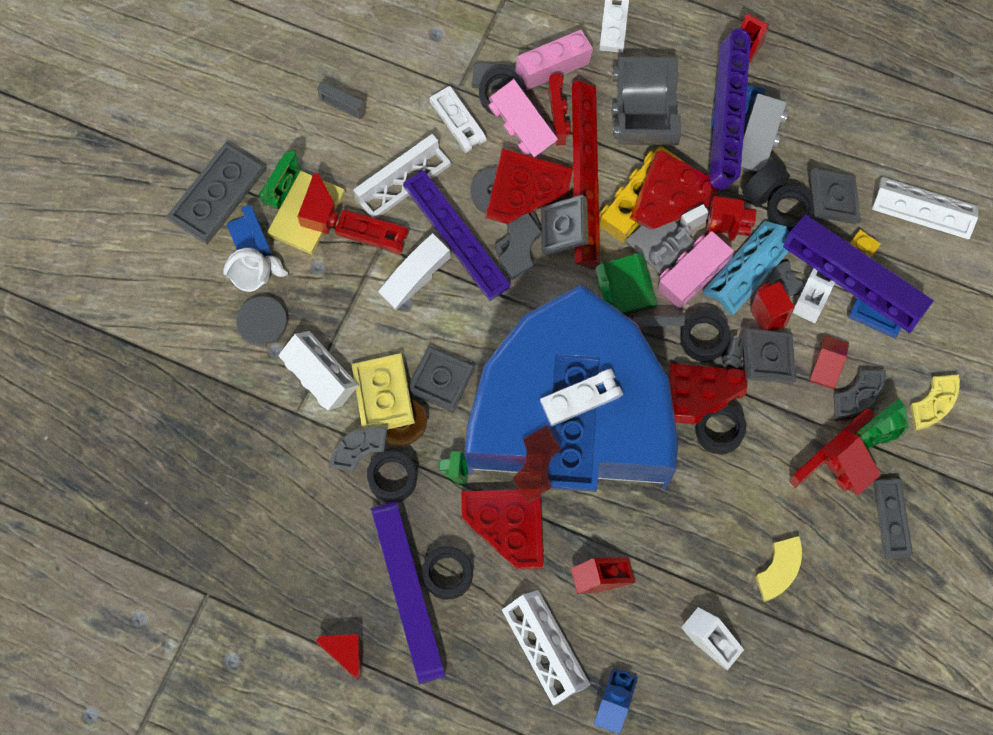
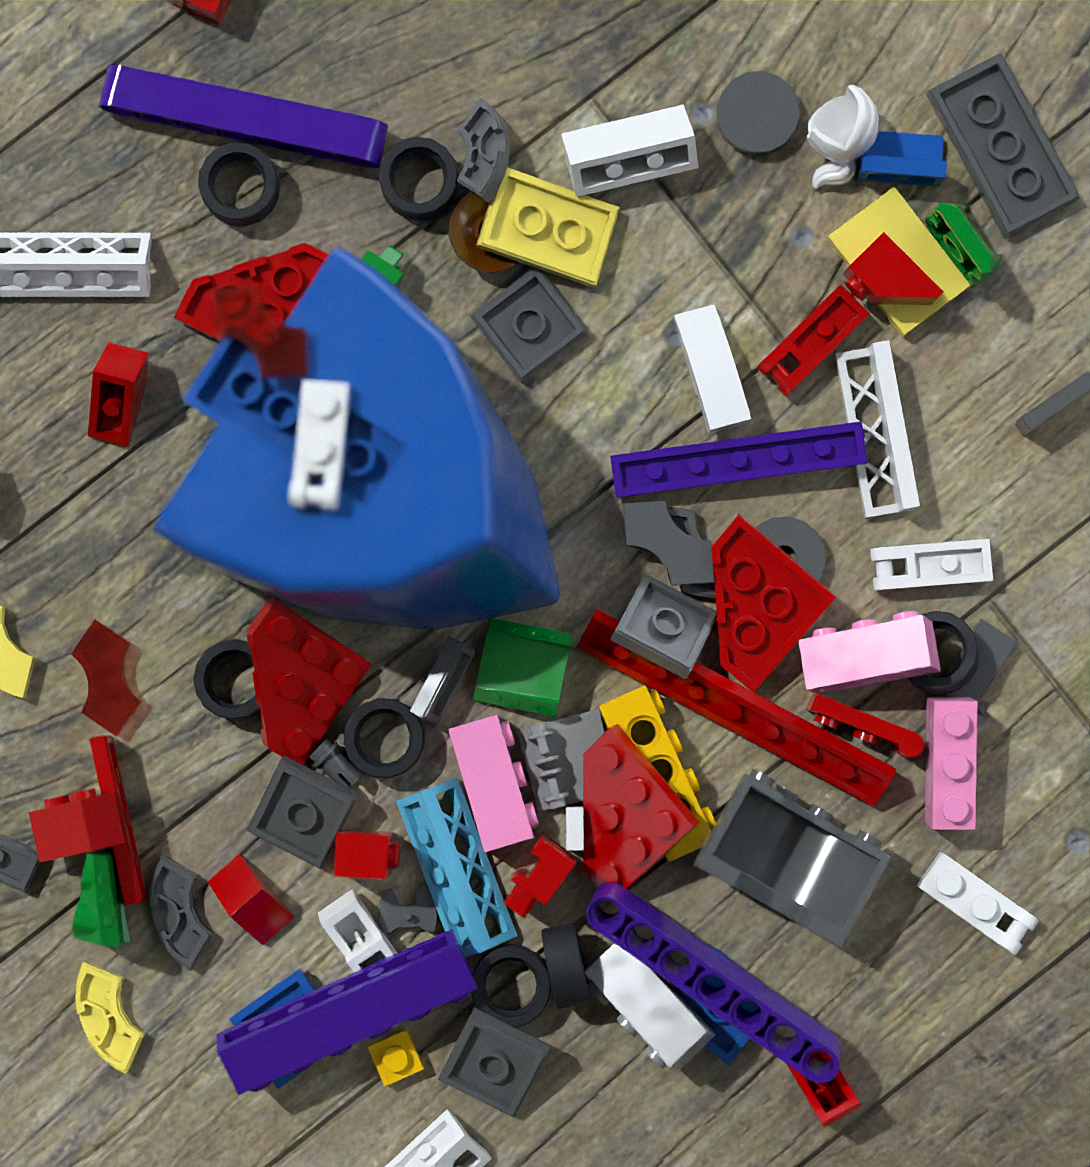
camera: 115 degrees right, 15 degrees up
(750, 506) = (103, 659): none -> clear red tile

